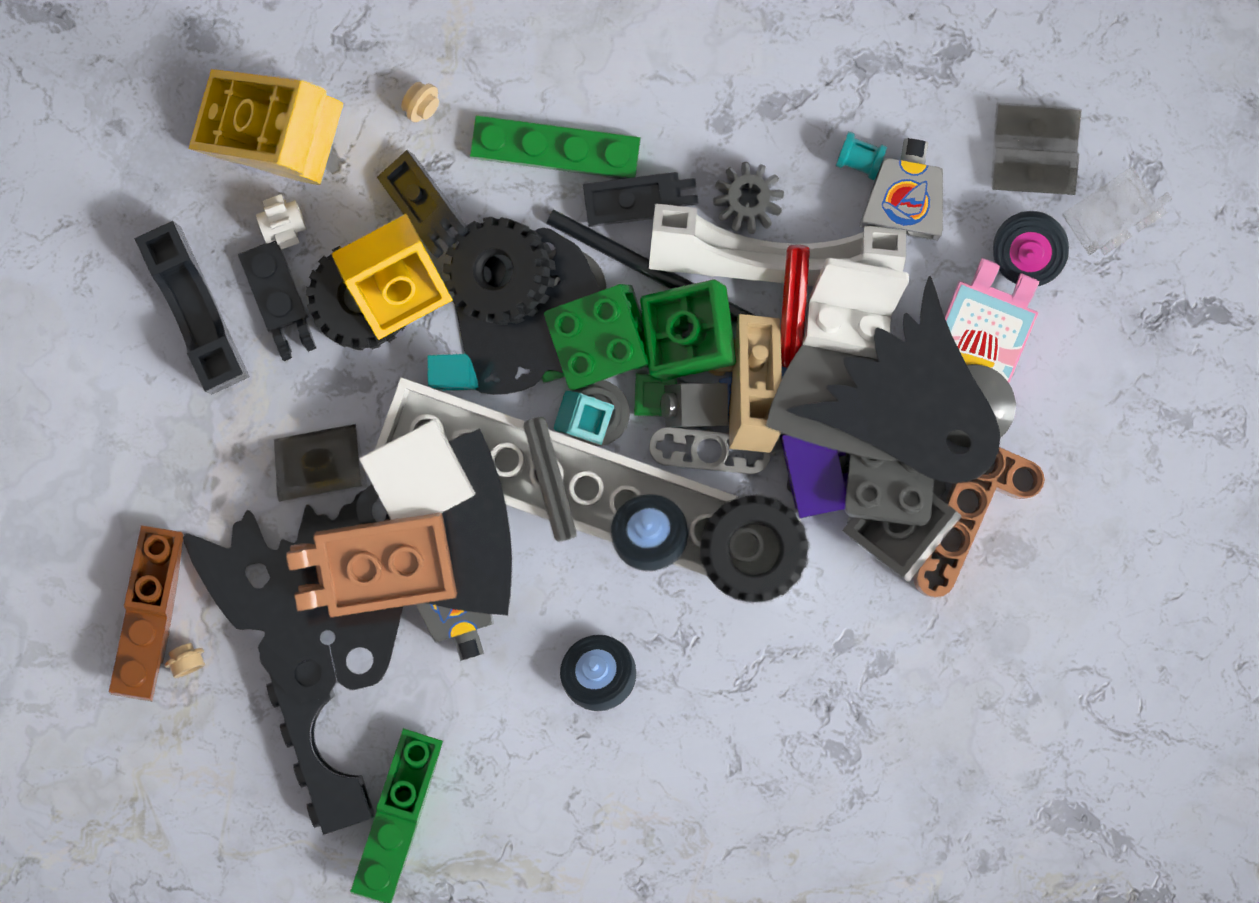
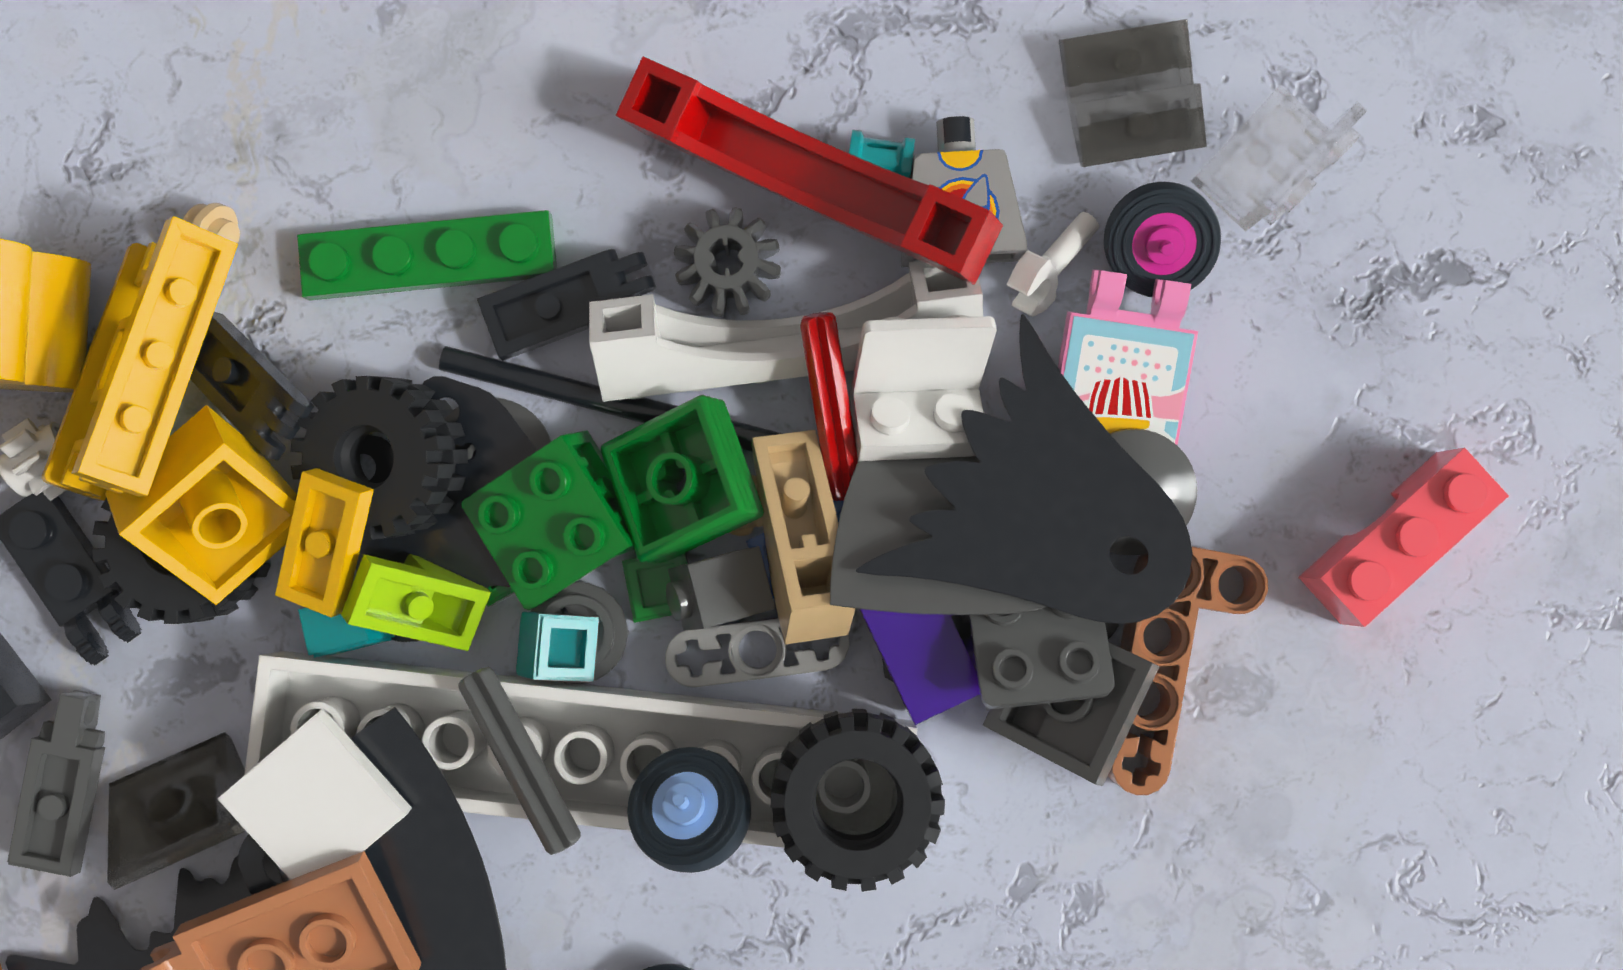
camera: 20 degrees left, 0 degrees up
(245, 435) = (59, 788): none -> dark grey hinge
(369, 178) = (140, 363): none -> yellow fence
(458, 316) = (323, 541): none -> yellow plate
(503, 368) = (415, 601): none -> lime slope
(814, 154) = (806, 171): none -> red arch
(945, 253) = (1038, 275): none -> white bar
(1139, 475) = (1427, 520): none -> coral arch

